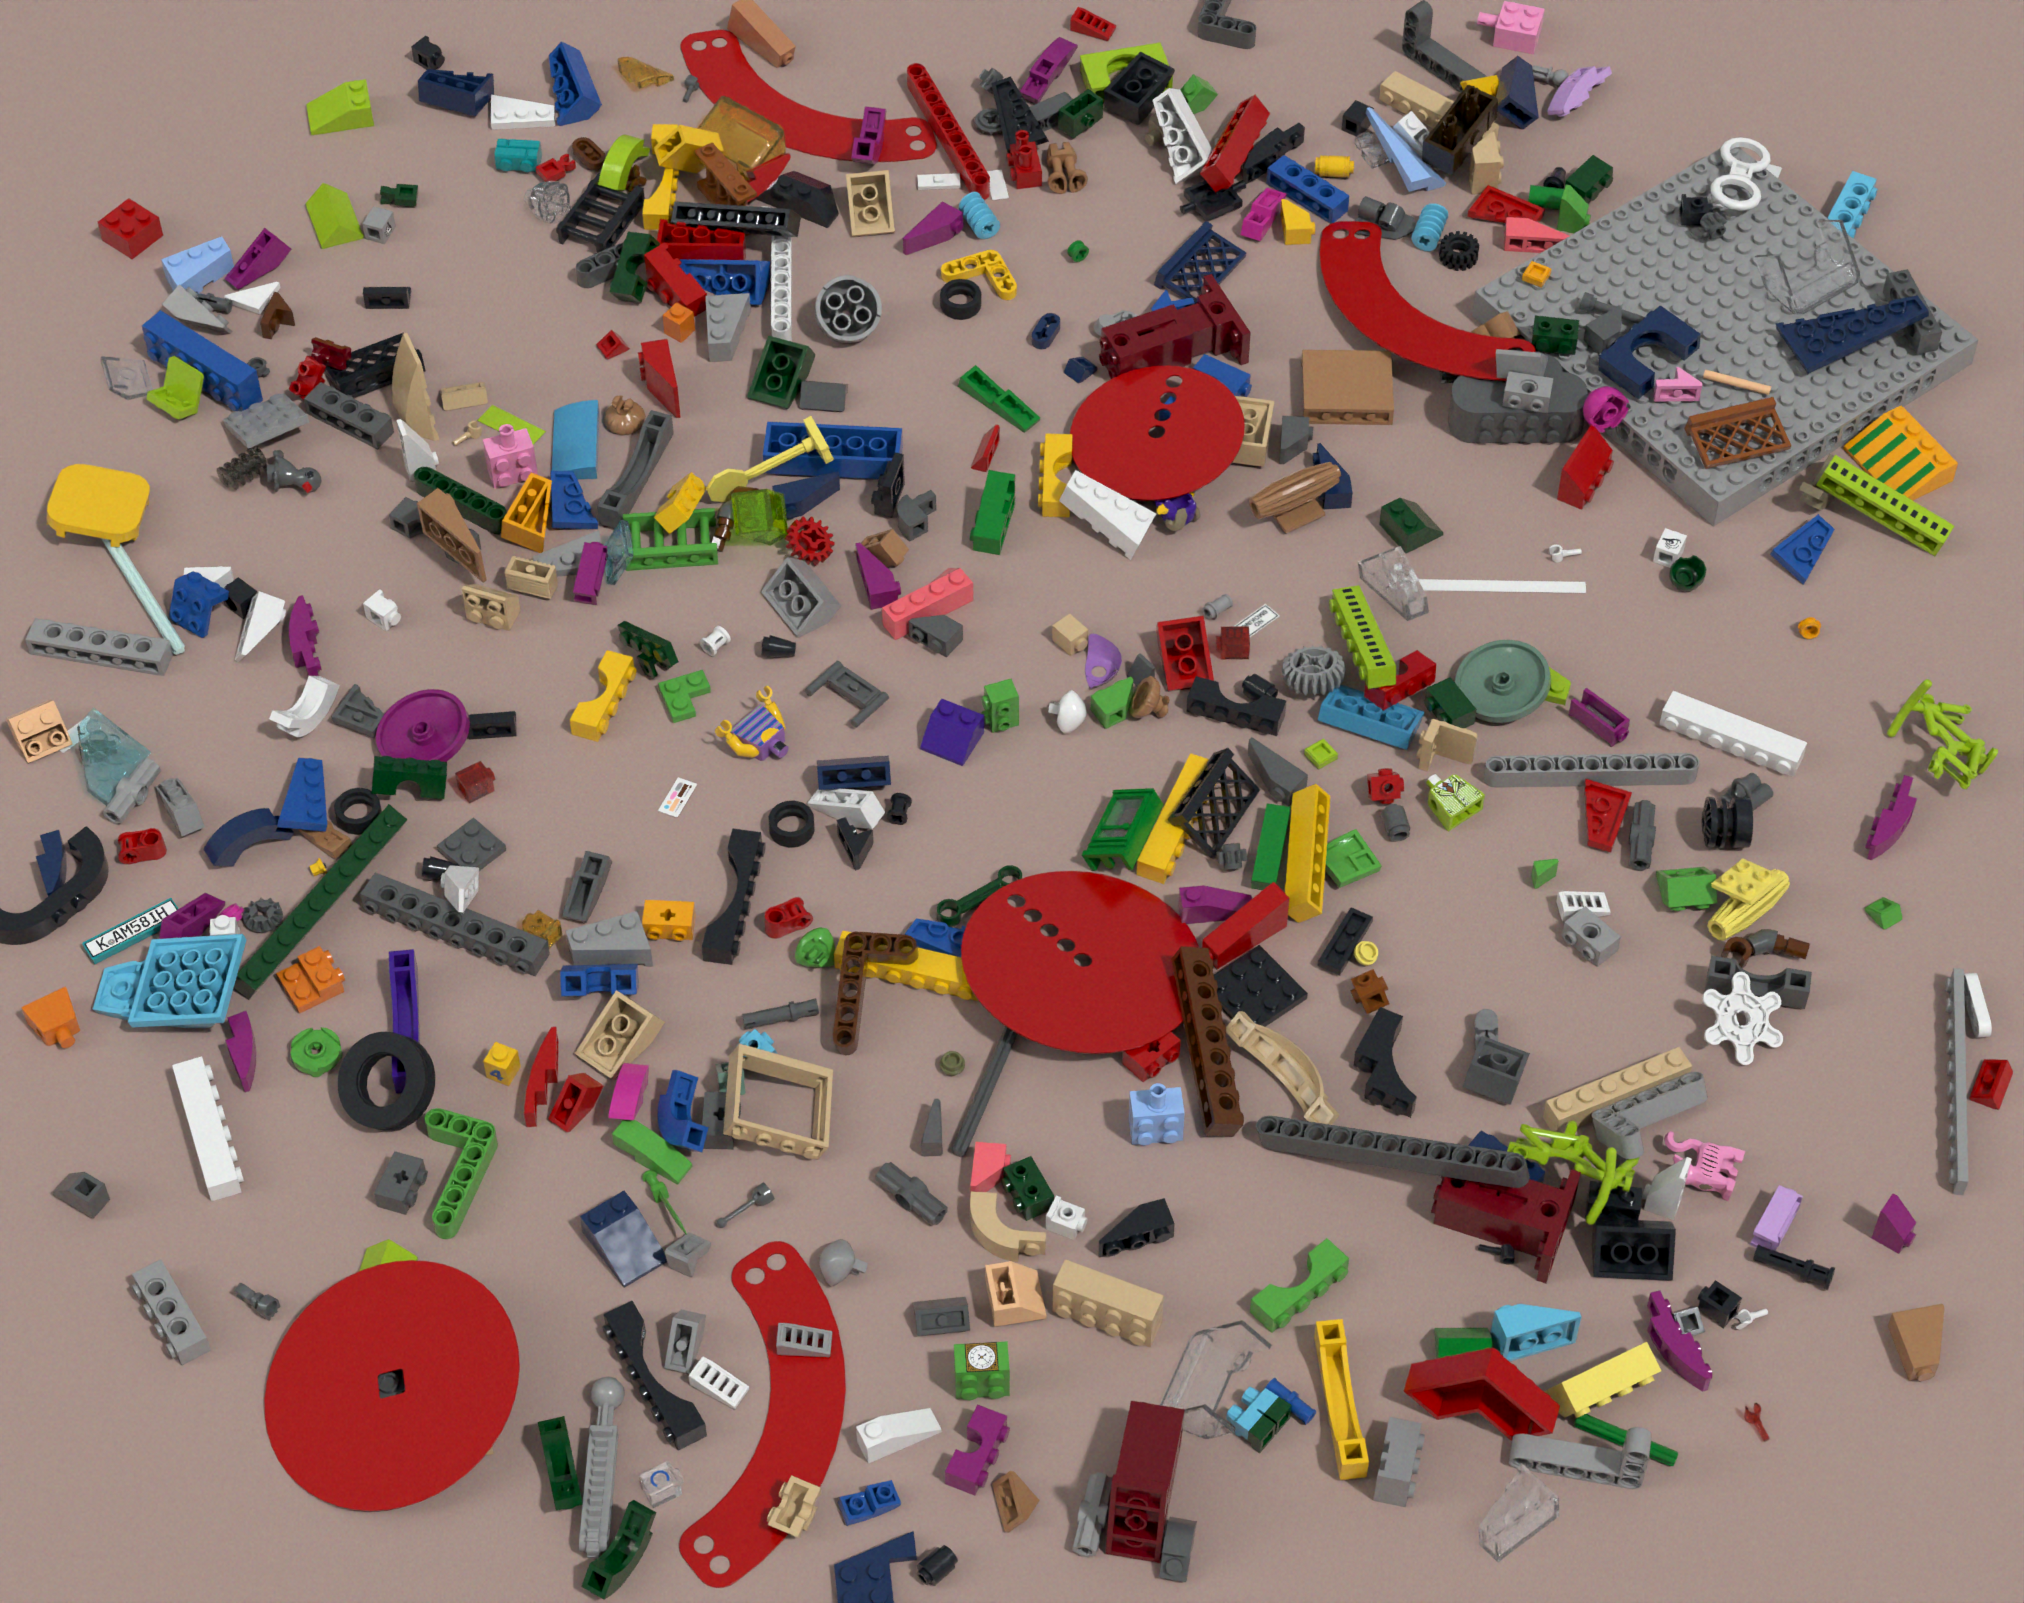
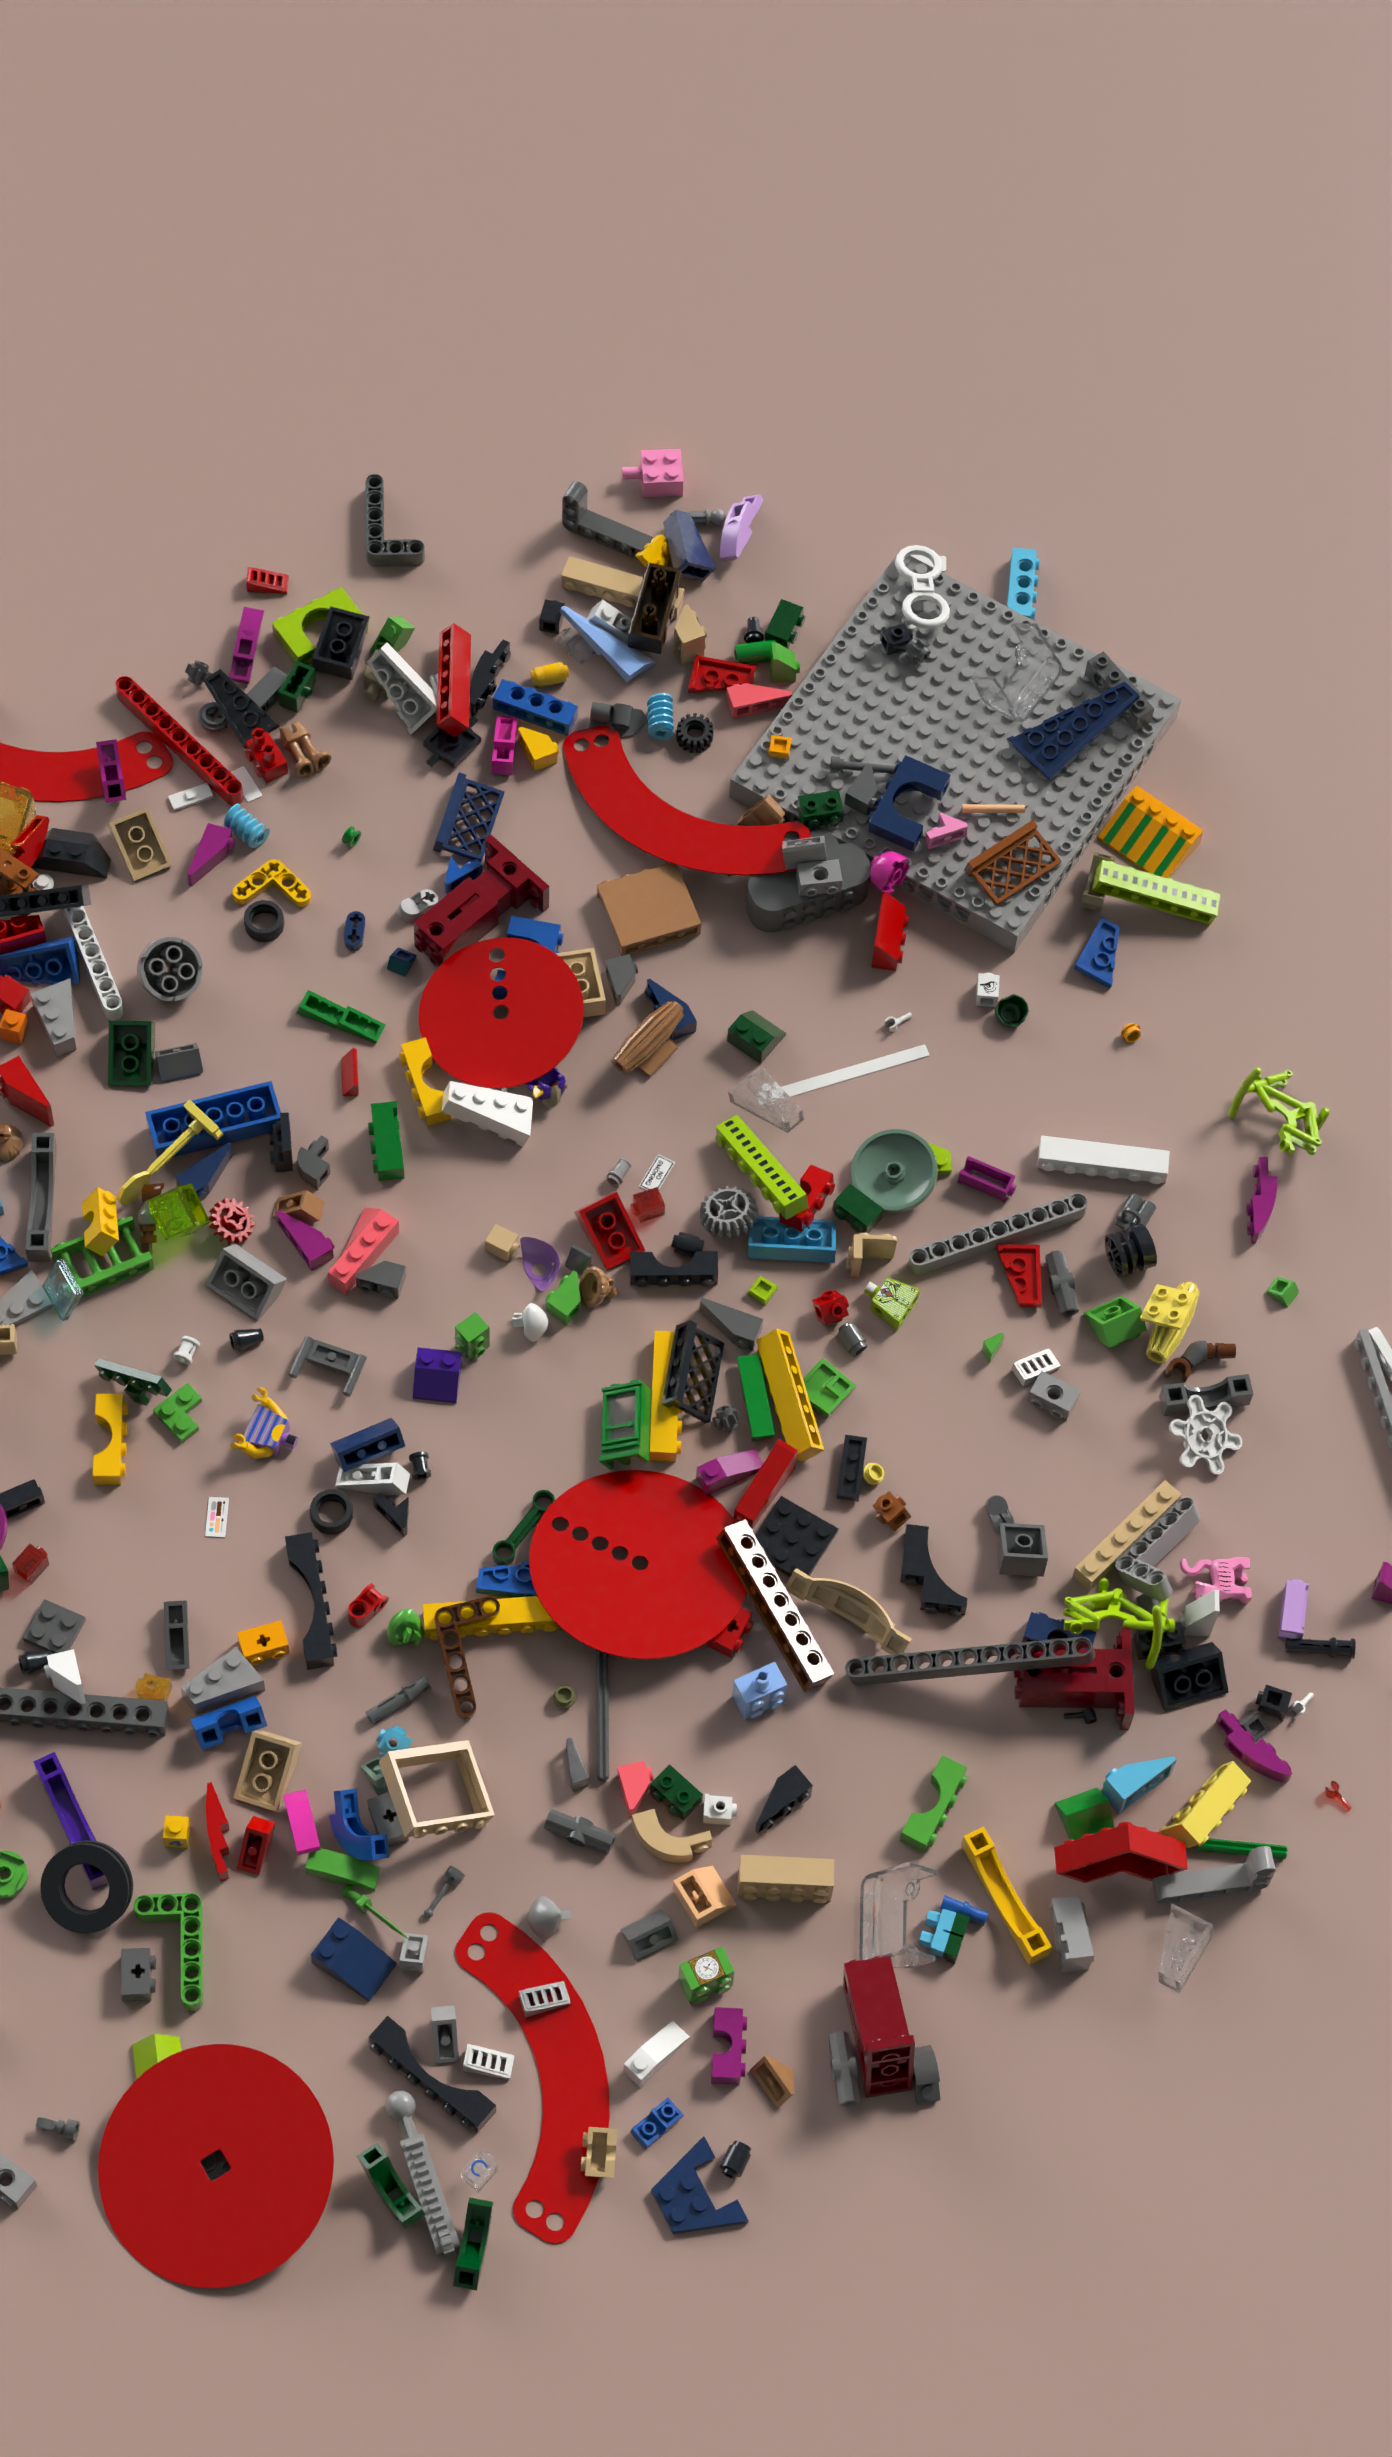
camera: 25 degrees left, 10 degrees up
(590, 573) = (46, 1318): magenta window -> none

